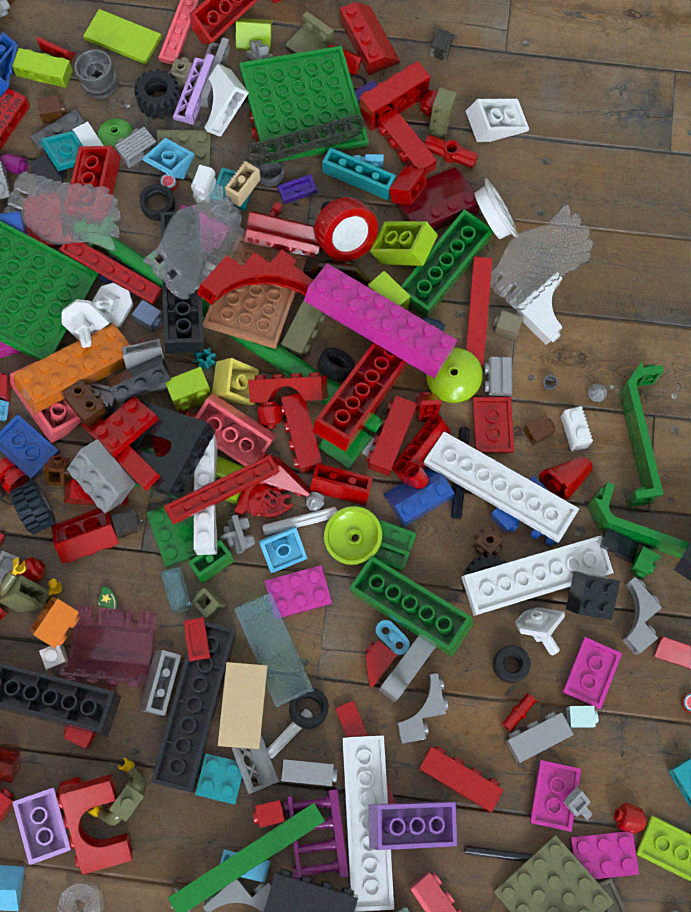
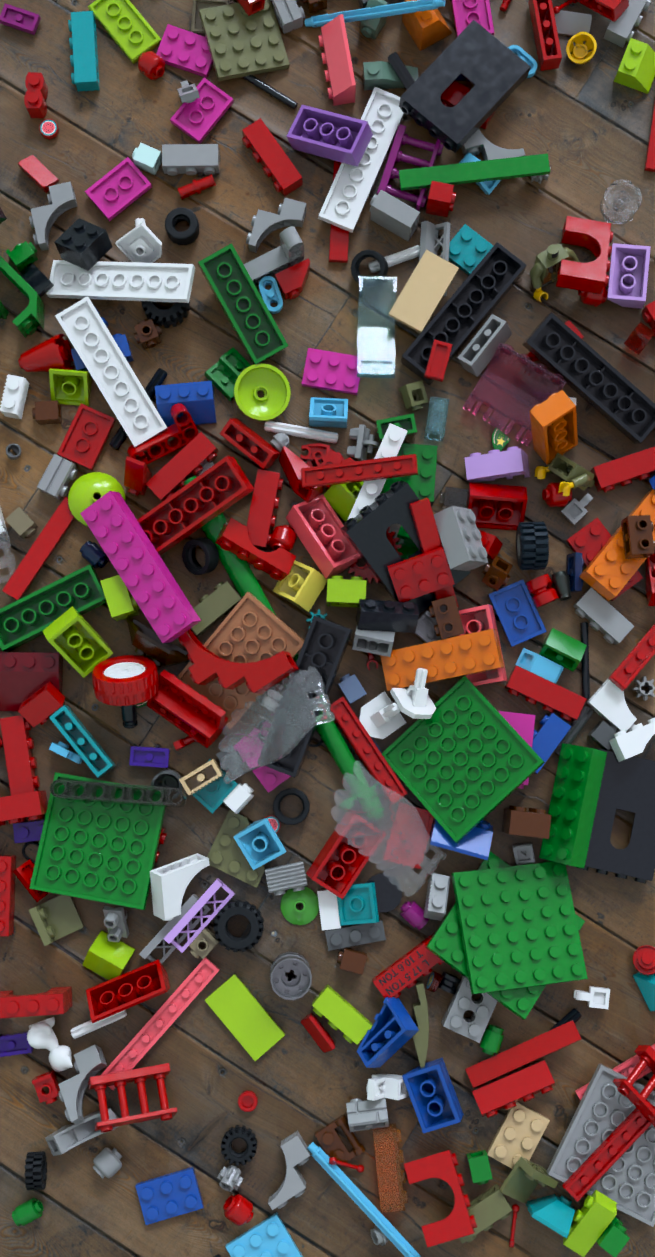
camera: 150 degrees left, 10 degrees up
(97, 570) = (497, 465): none -> lavender wedge
(532, 460) = (70, 386): none -> lime slope

